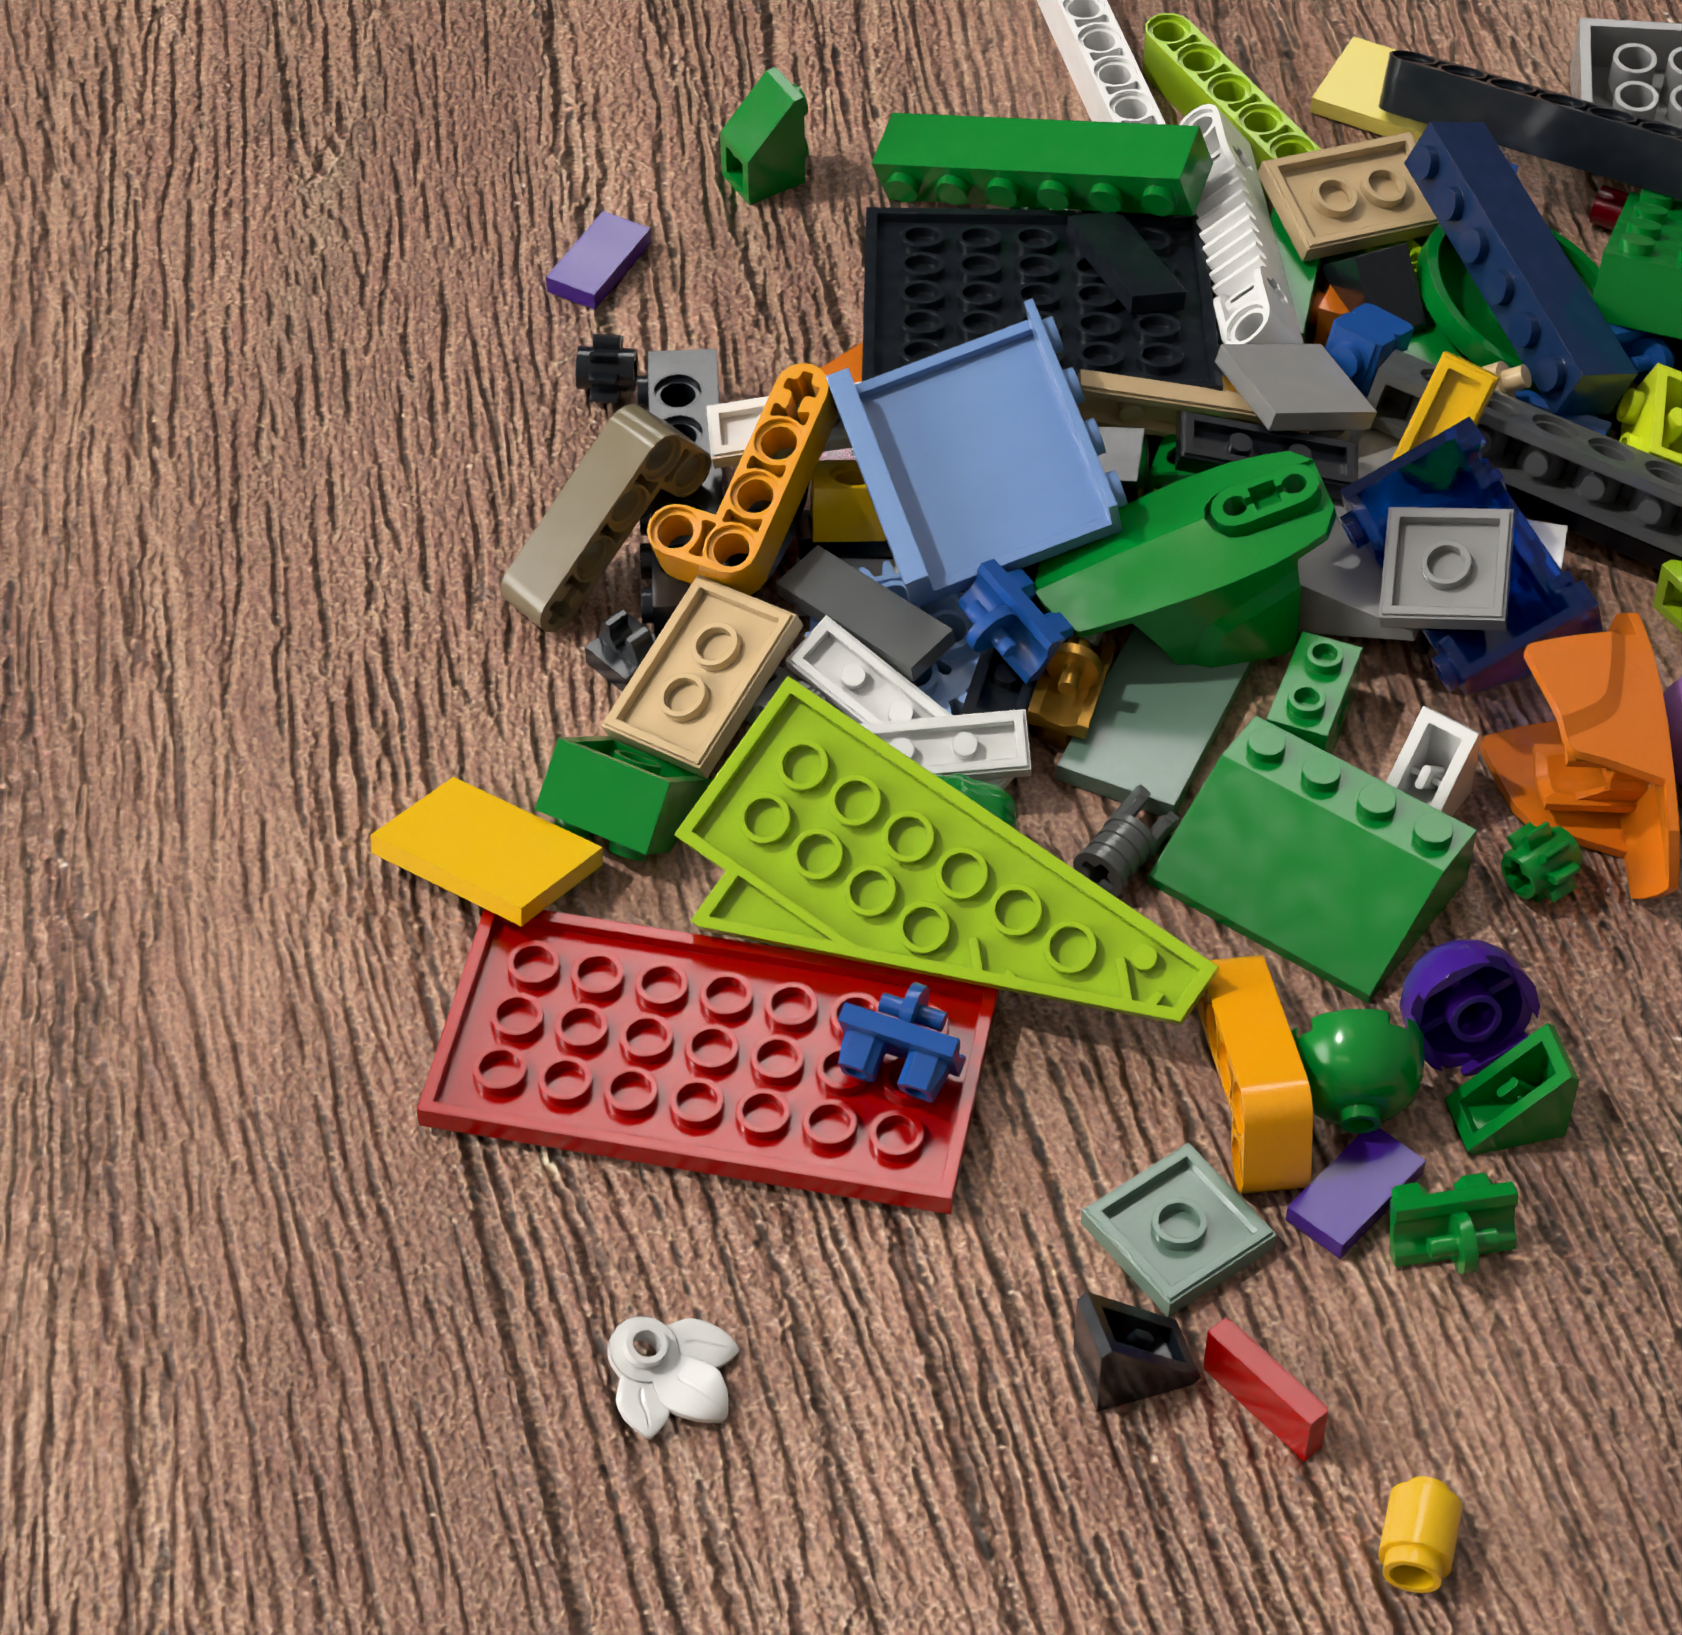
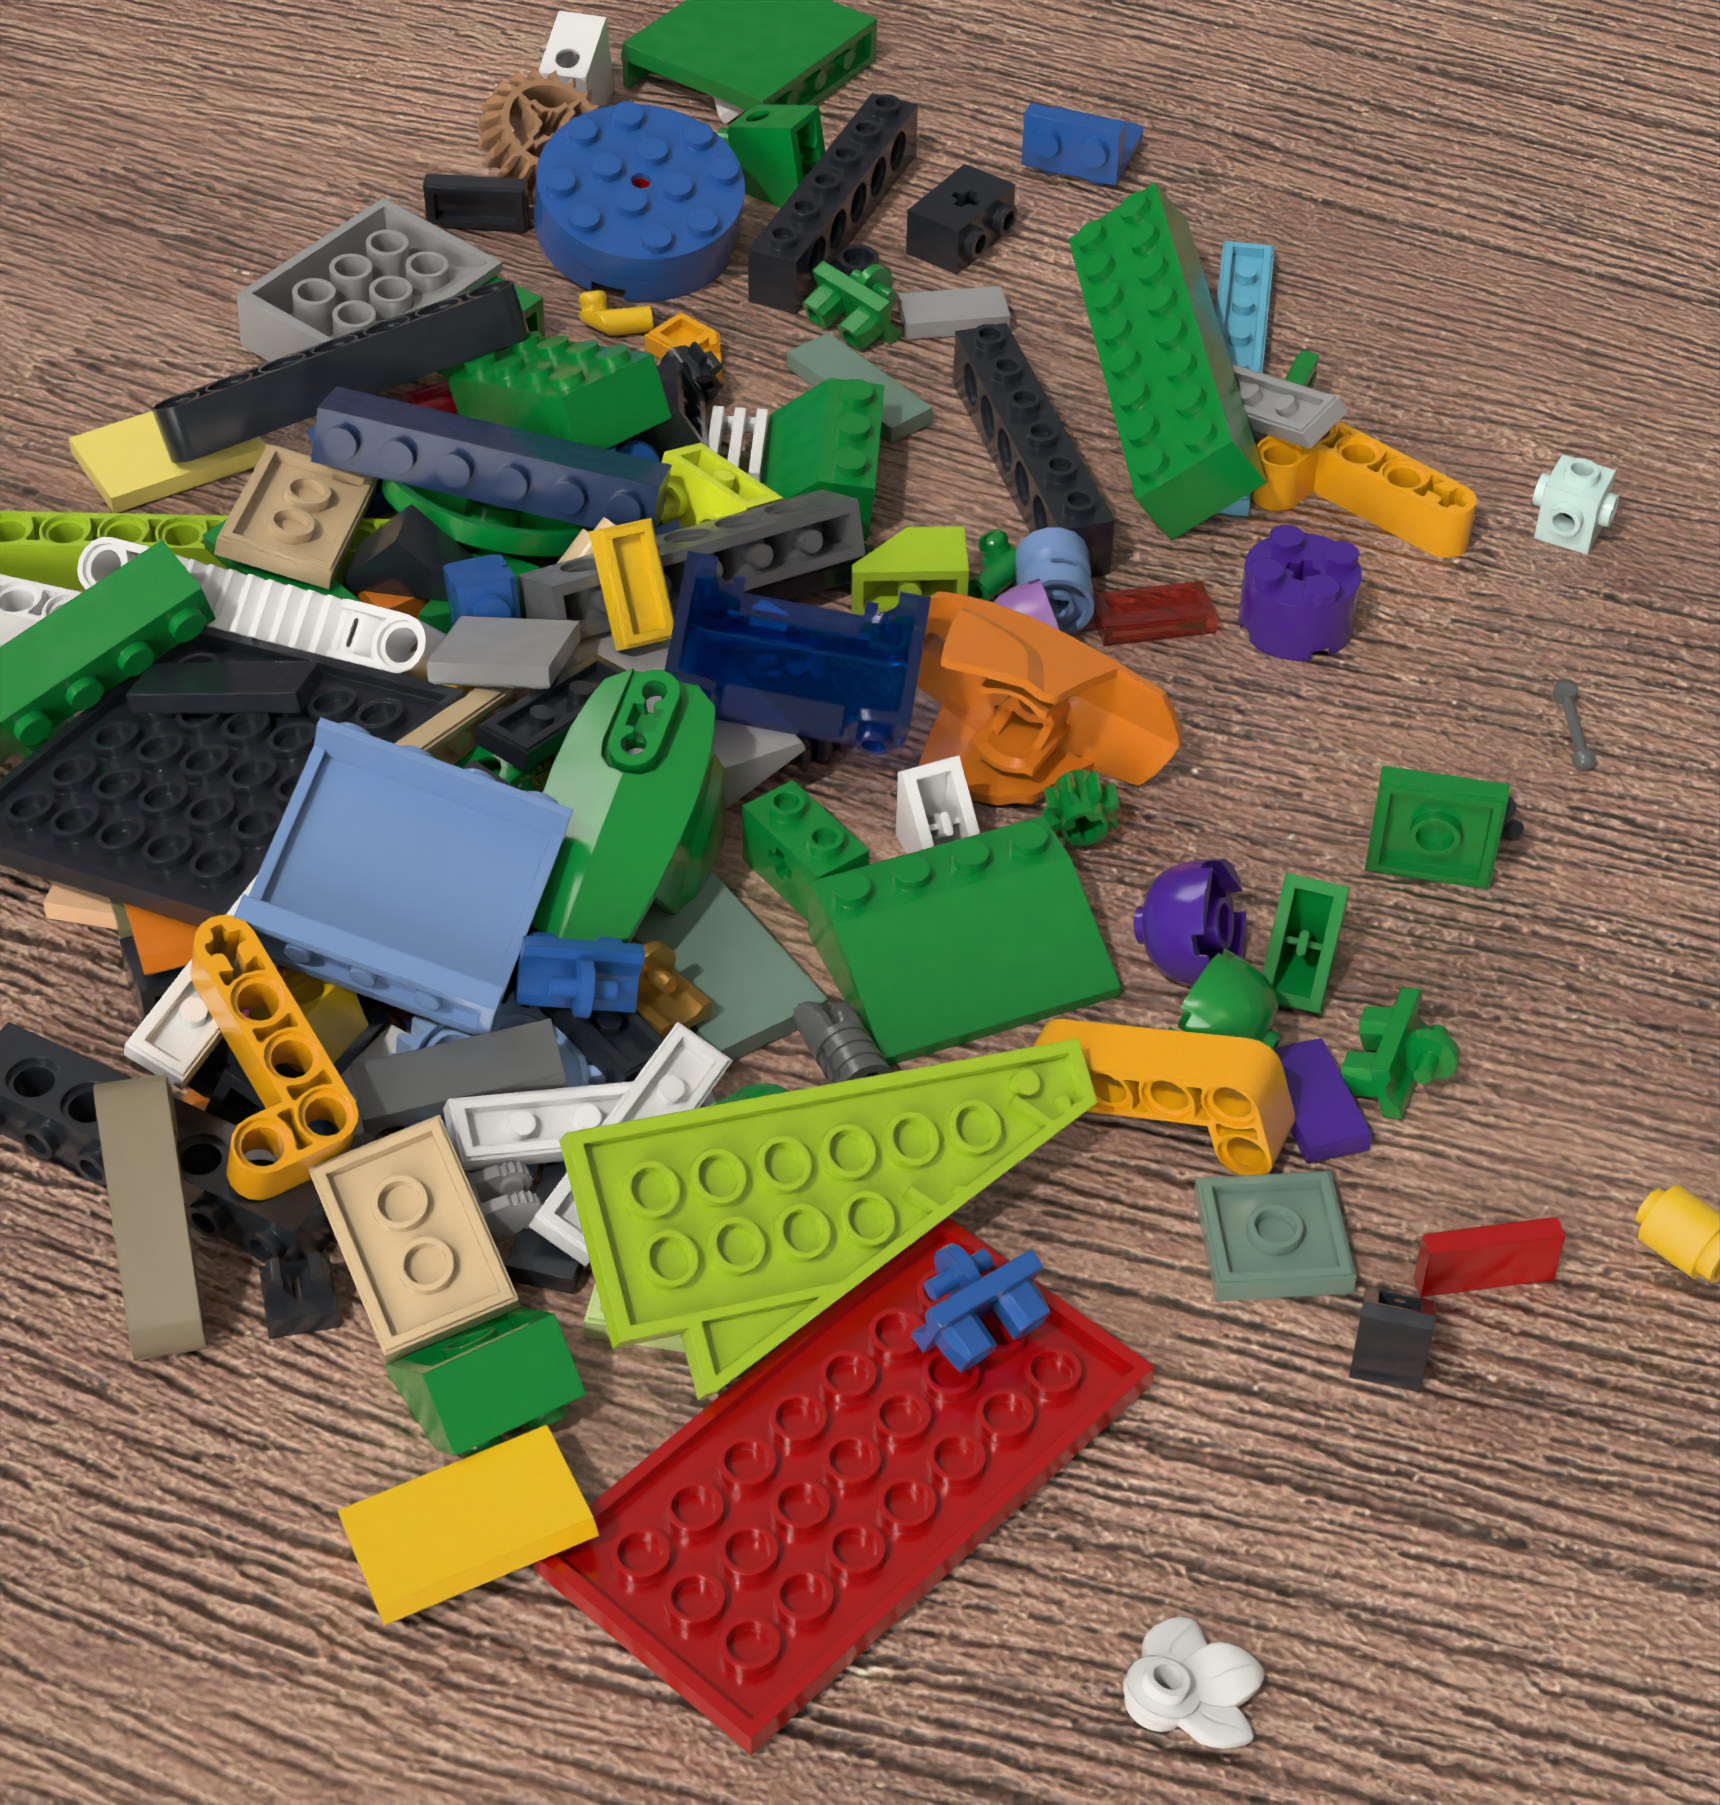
camera: 60 degrees left, 5 degrees down
(1447, 568) = (782, 674): light grey tile -> none

